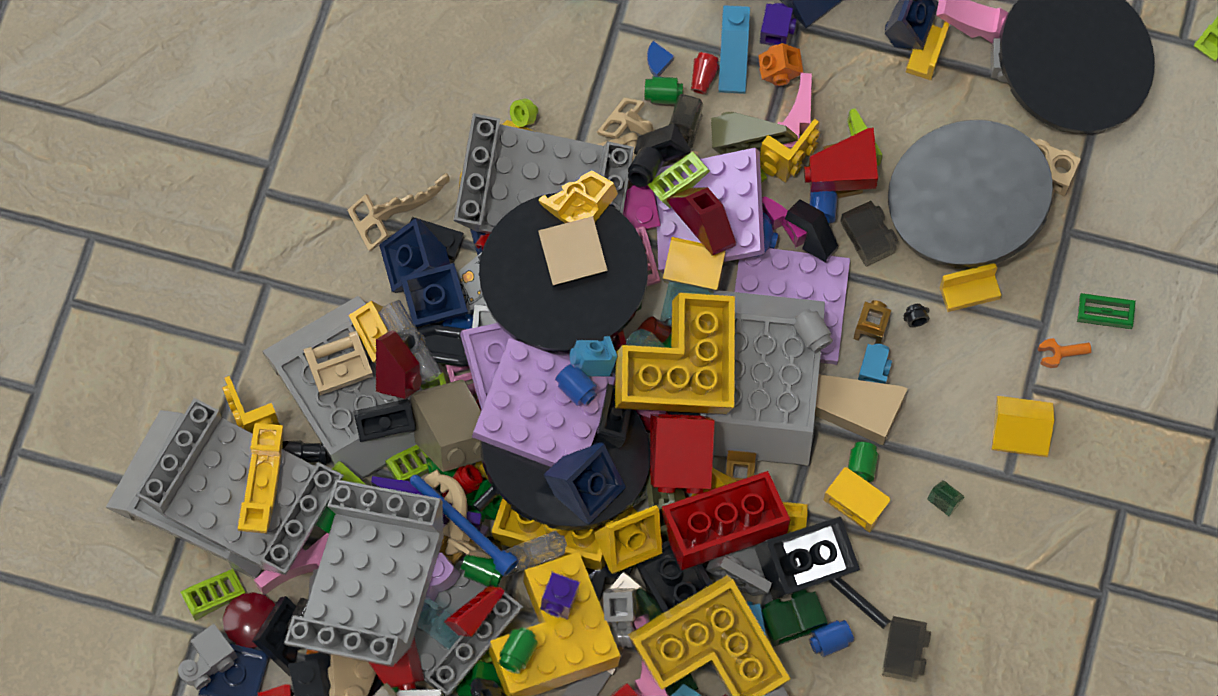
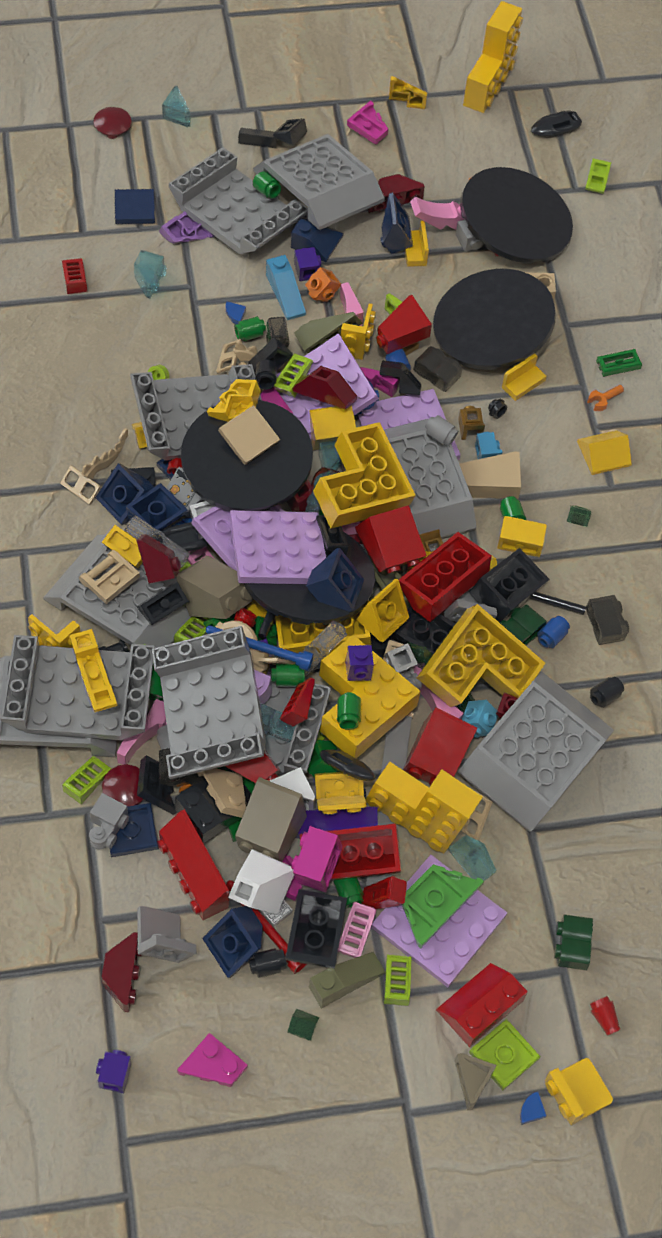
camera: 30 degrees left, 10 degrees down
(576, 385) = (297, 520): blue brick -> none
(594, 356) = (298, 500): dark azure brick -> none
(704, 70) = (271, 305): red cone -> none

